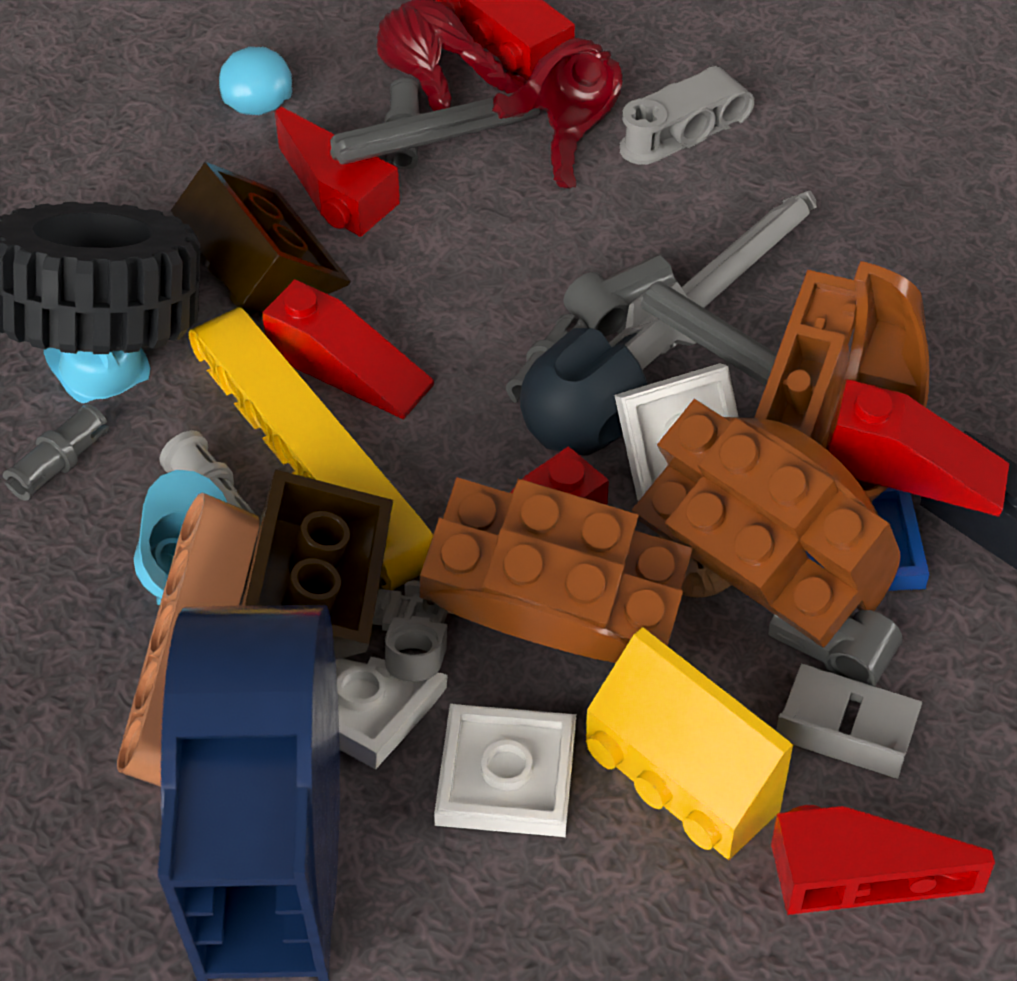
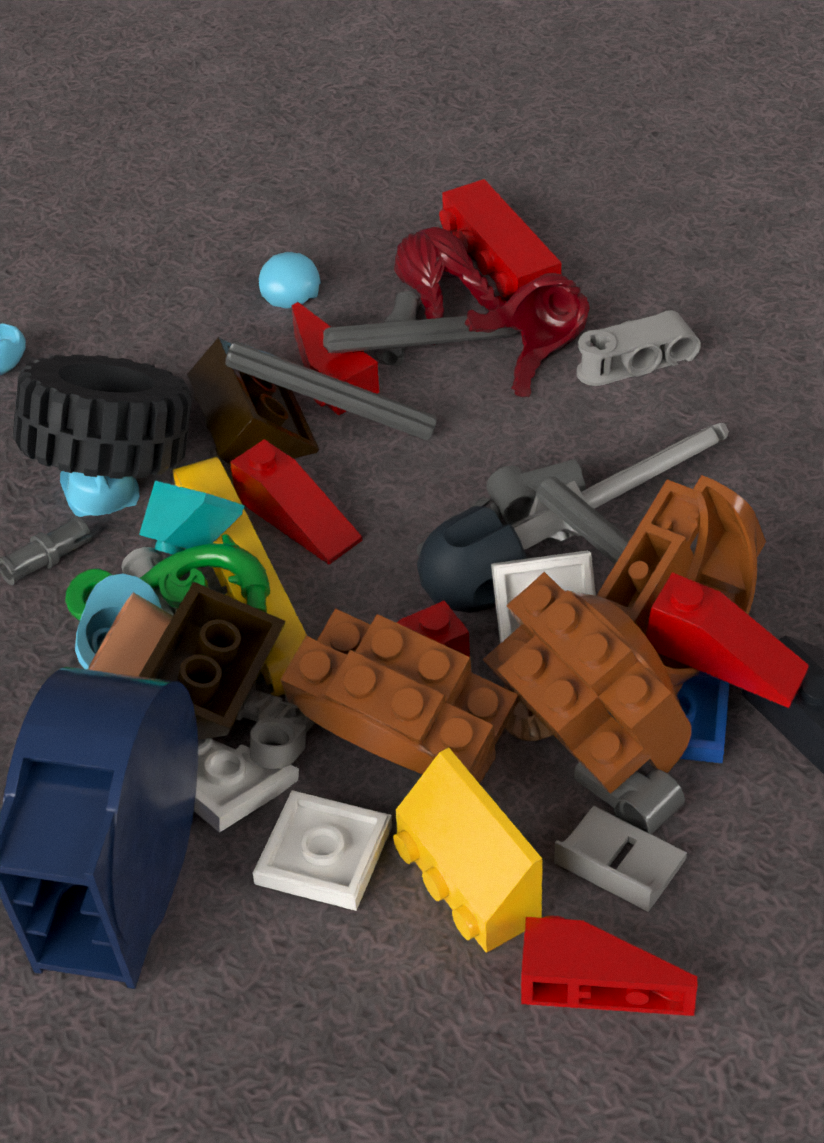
camera: 15 degrees right, 5 degrees down
(226, 460) = (167, 573): none -> green plant
(232, 389) = (186, 517): none -> teal slope
(352, 209) = (331, 390): none -> dark grey axle

